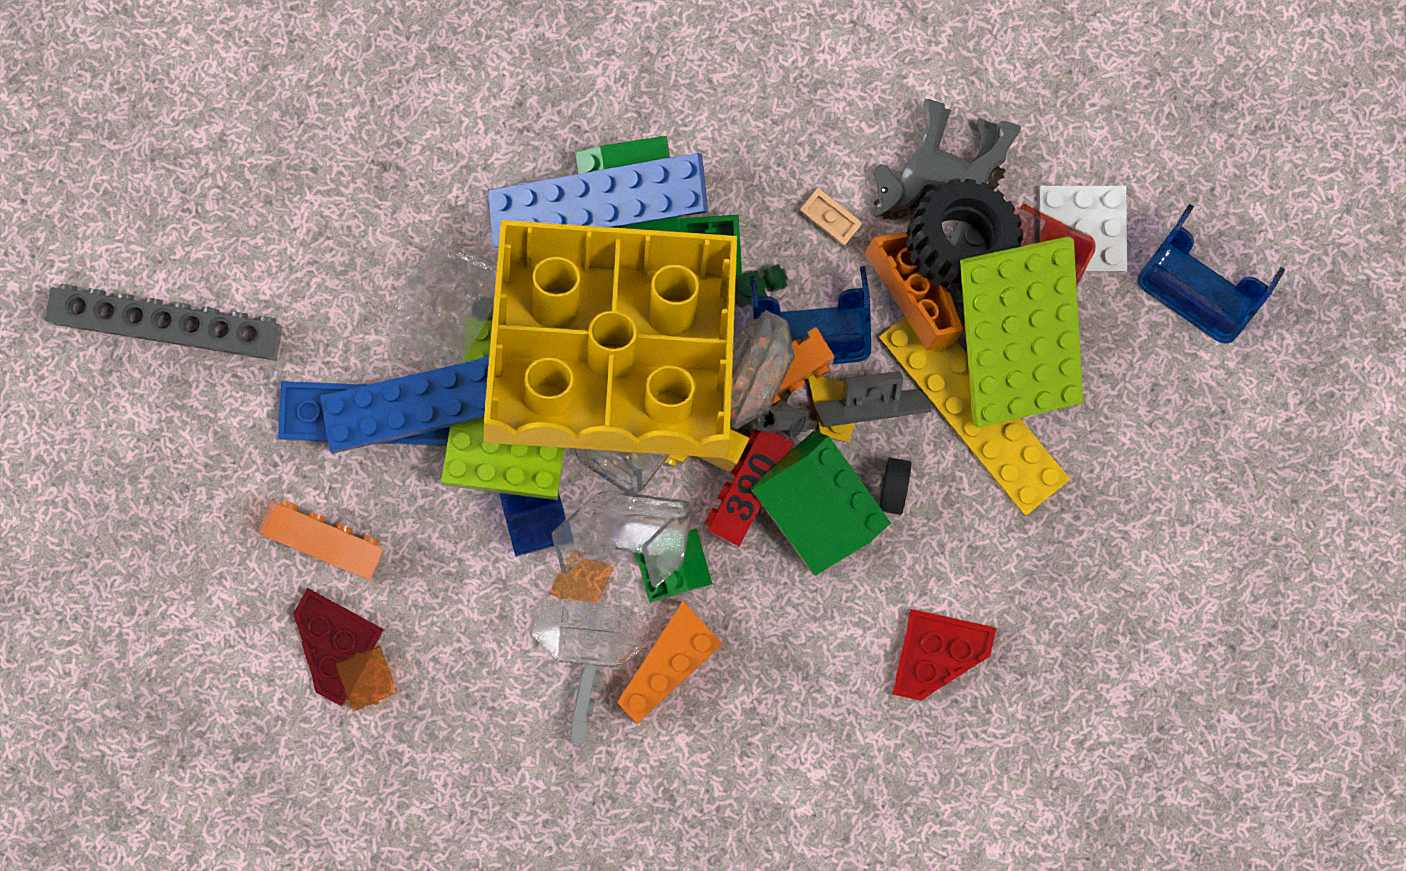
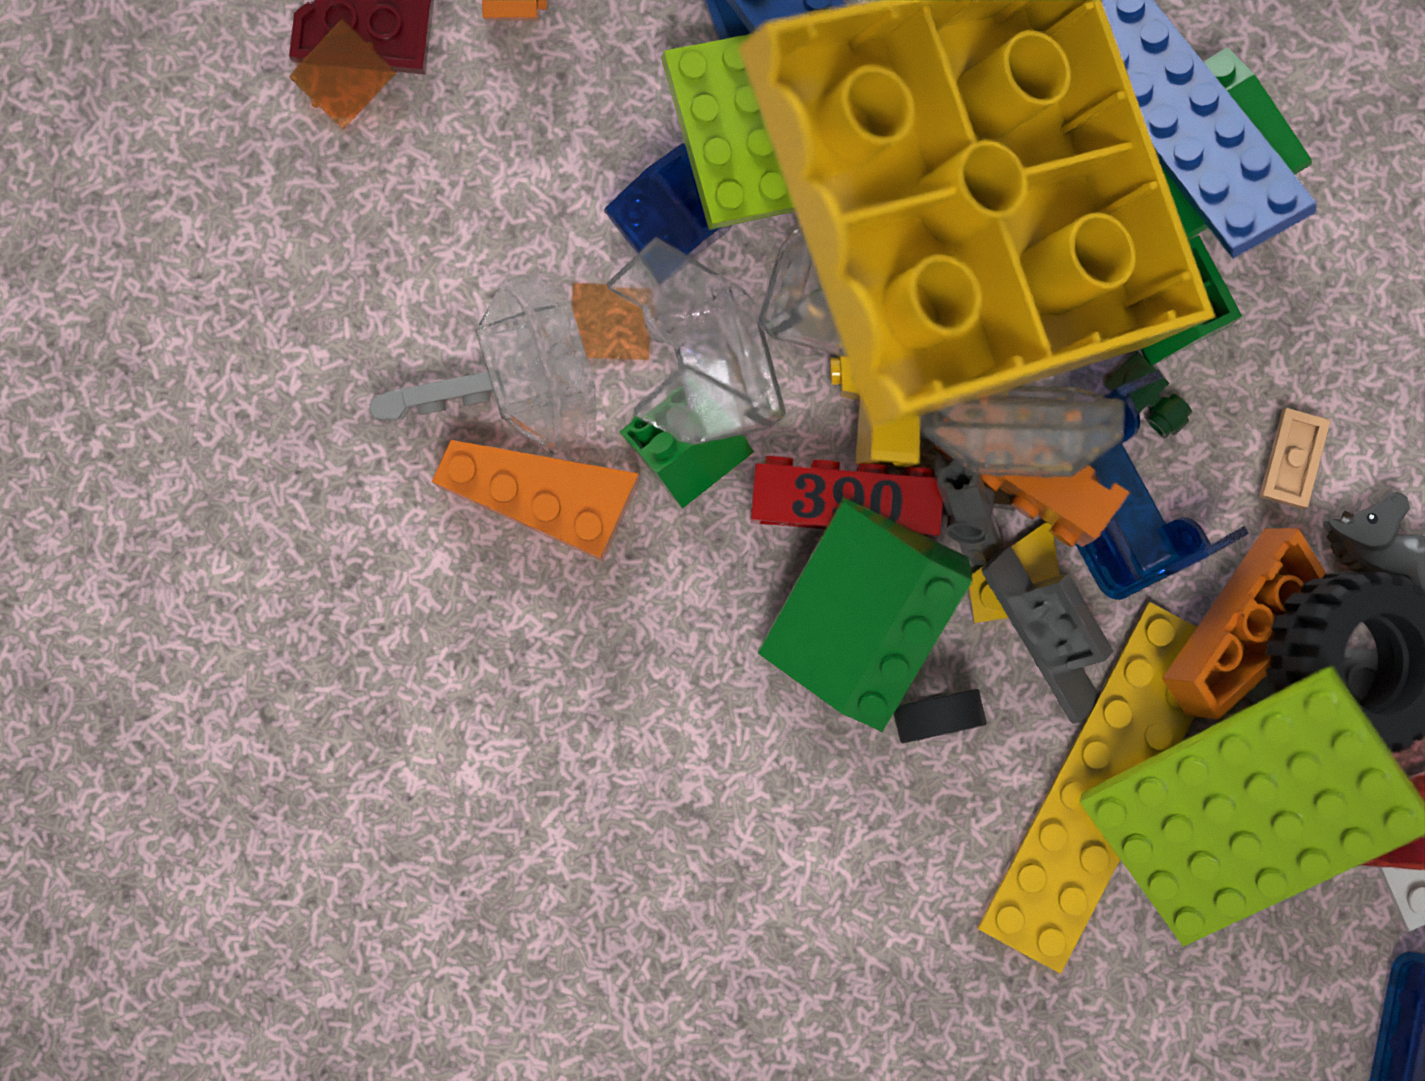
camera: 70 degrees right, 0 degrees up
(938, 651) = (721, 882): red plate -> none

